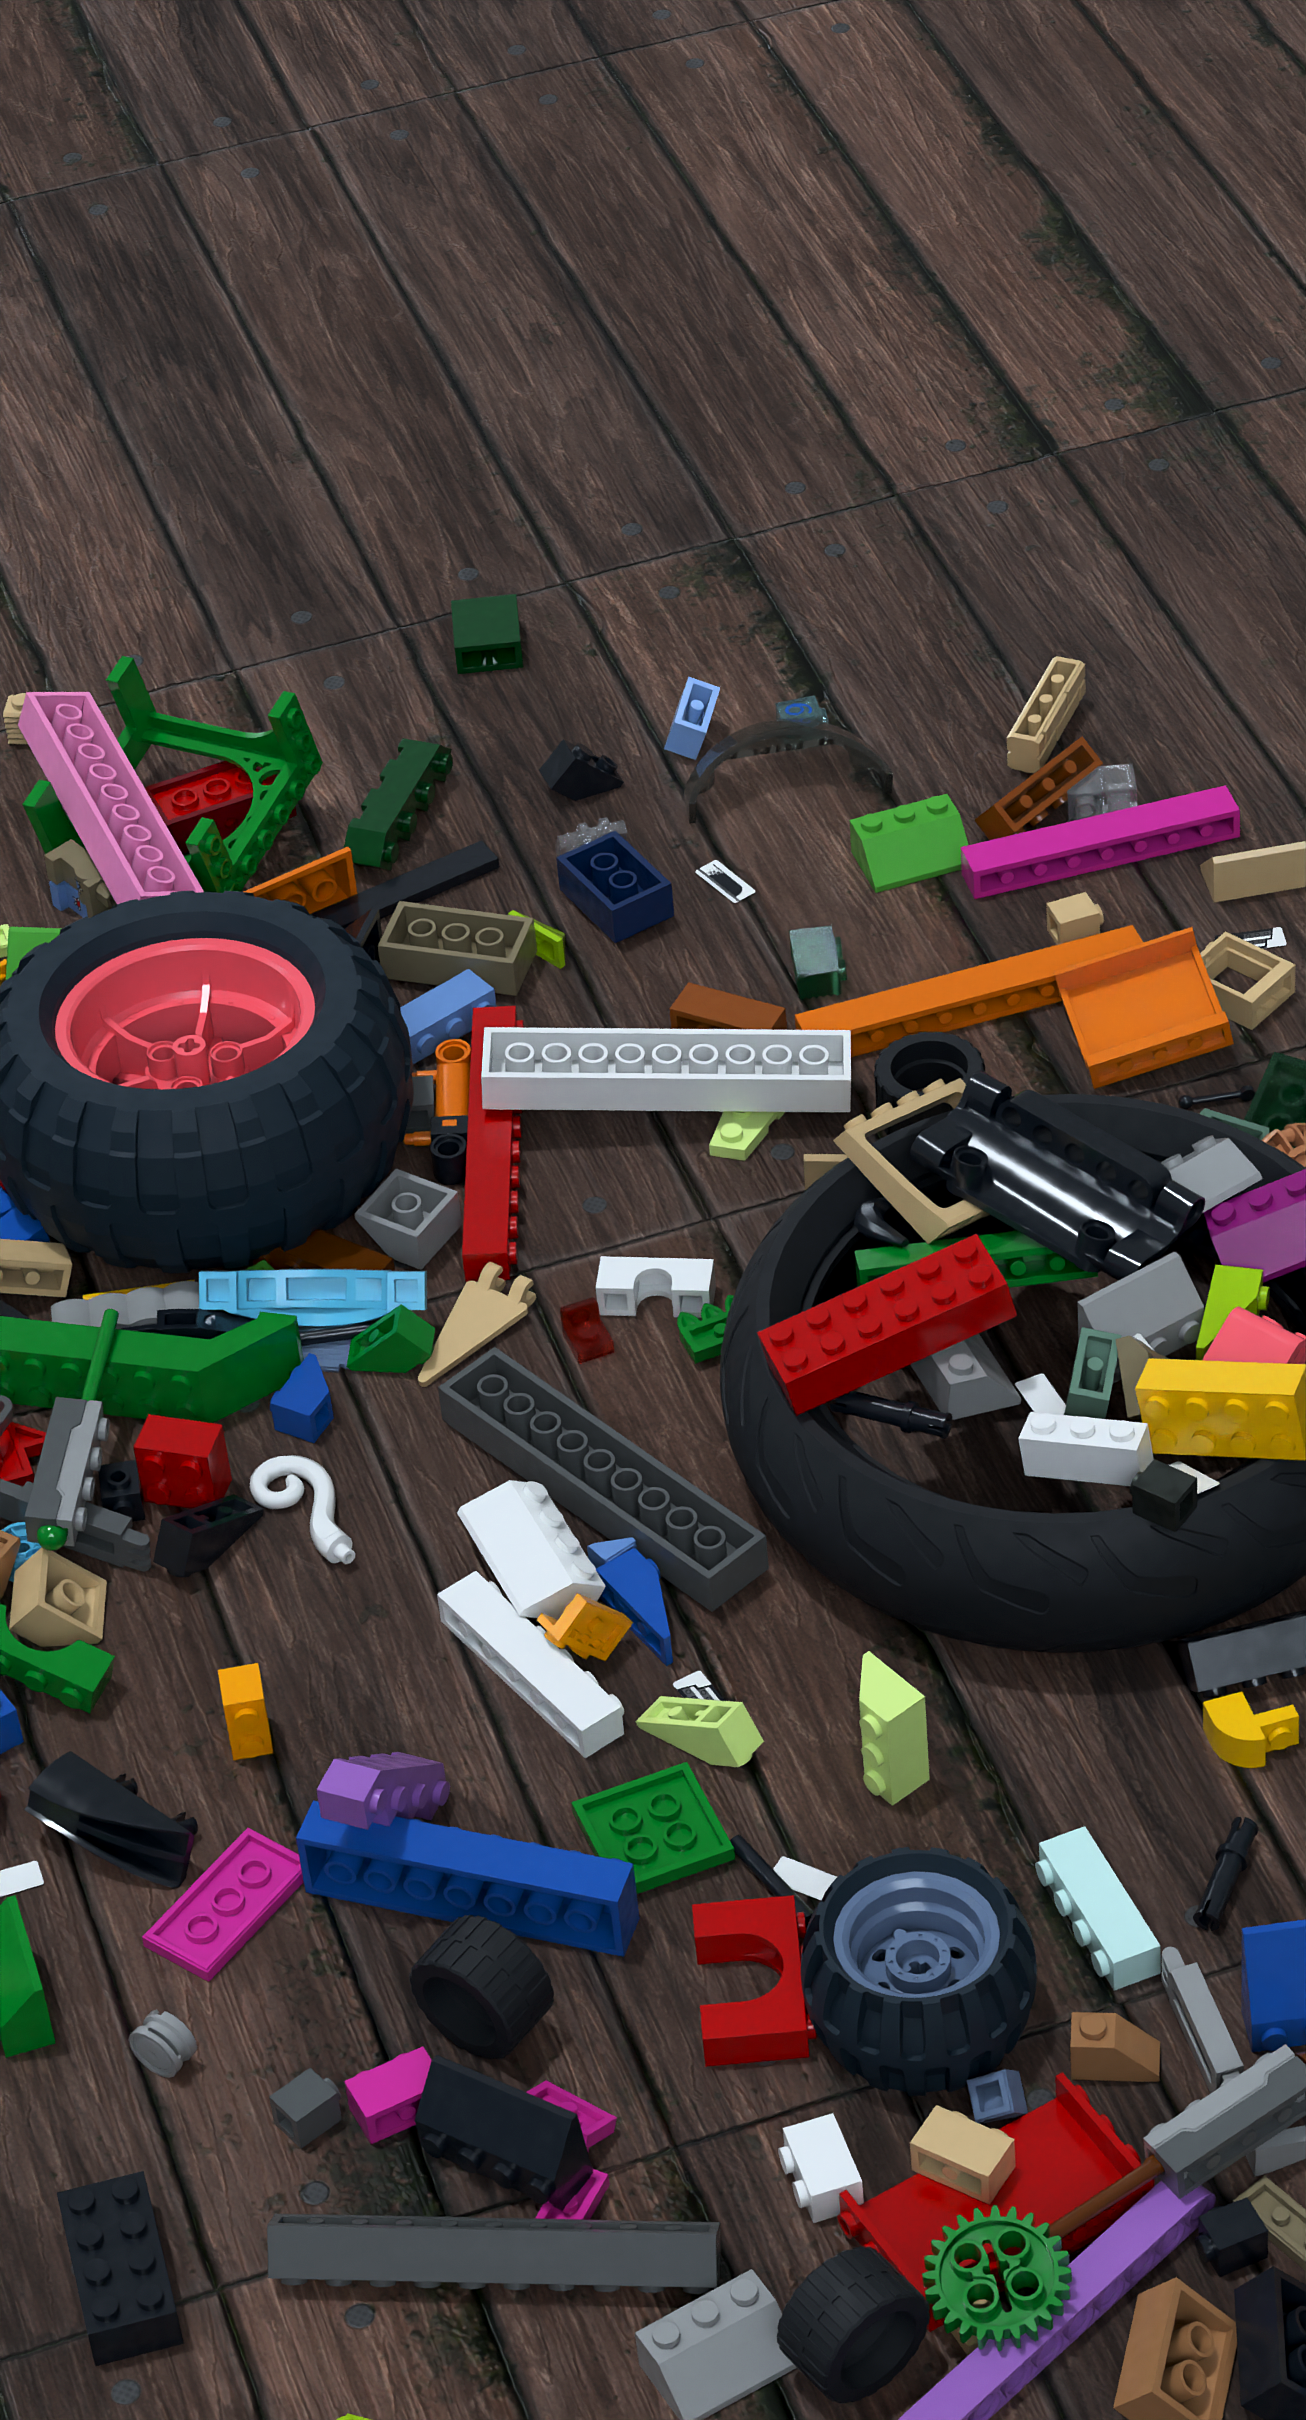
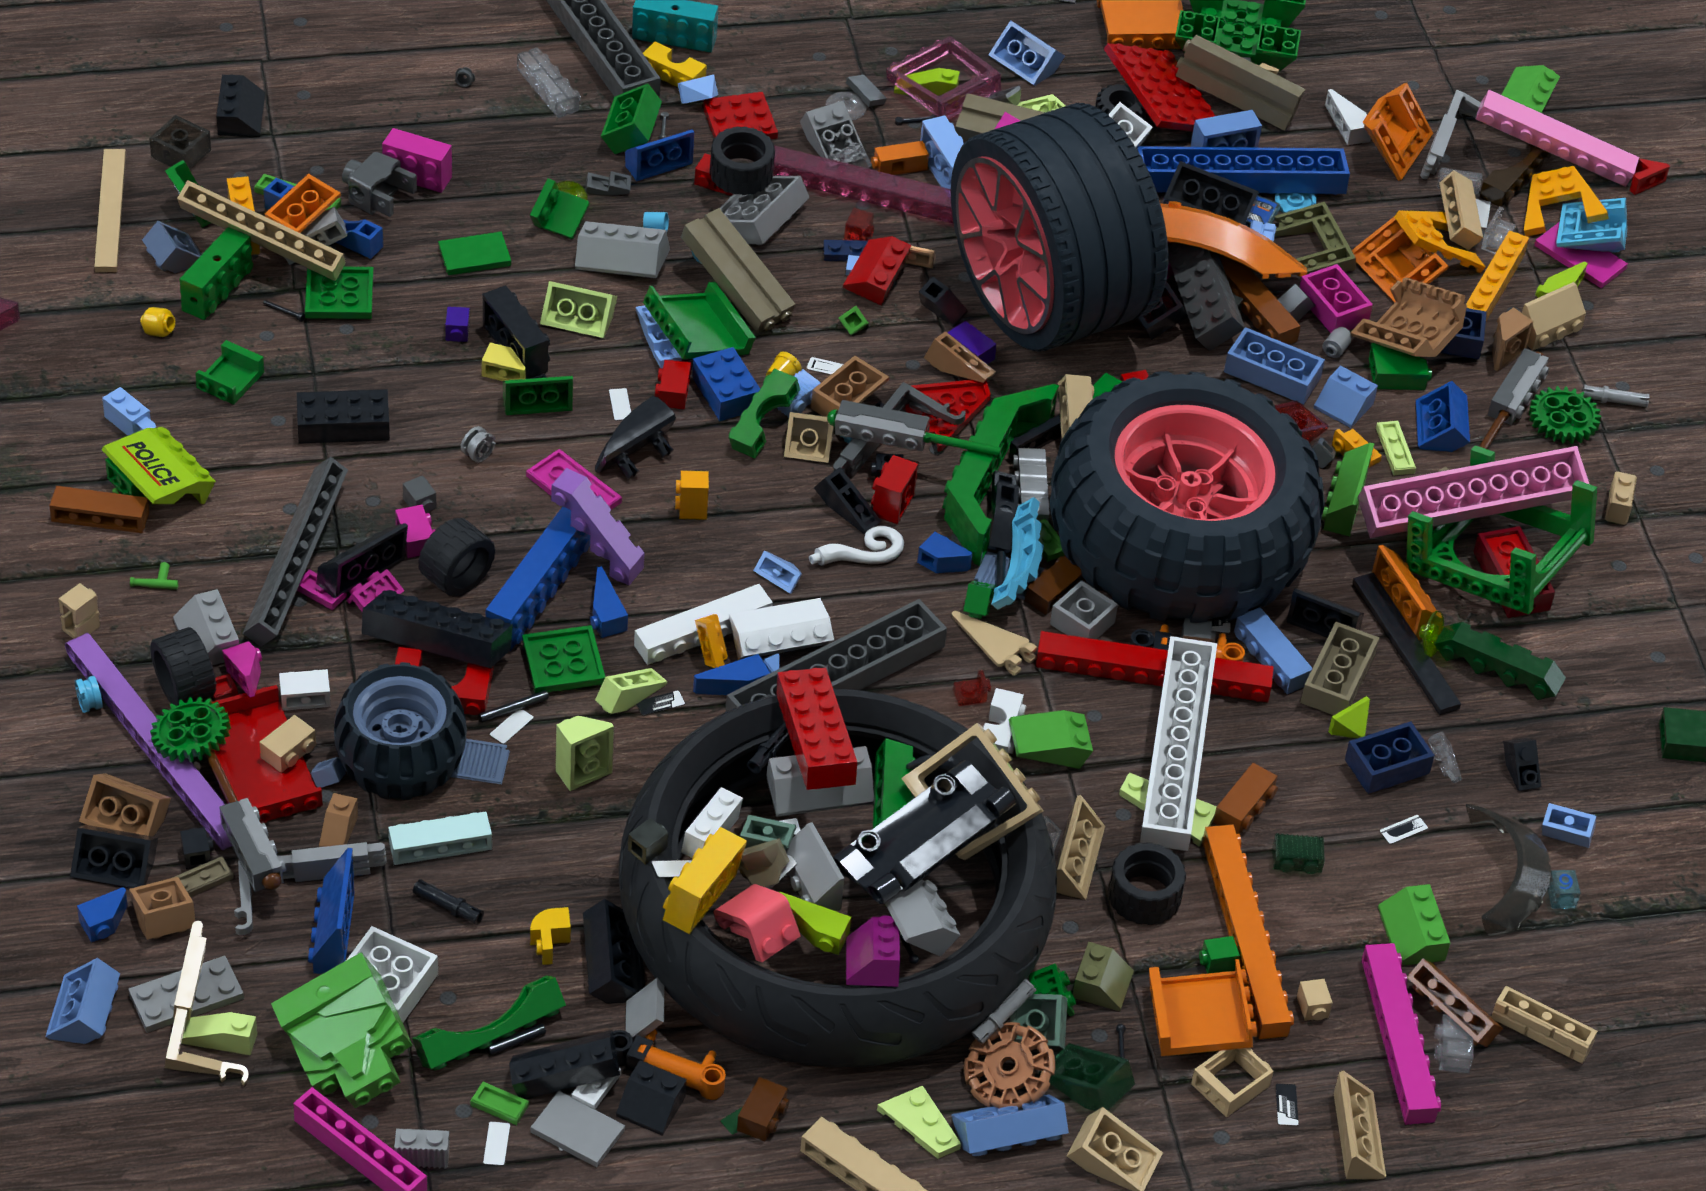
camera: 90 degrees right, 5 degrees up
(372, 859) = (1431, 632): none -> clear neon green dish
(384, 1593) = (778, 571): none -> light blue slope
(515, 1796) = (608, 612): none -> blue slope
(654, 1987) = (437, 628): none -> black brick
(678, 1213) = (1052, 737): none -> bright green slope
(800, 2248) = (244, 666): none -> dark pink slope
(1027, 1015) = (1219, 954): none -> green brick

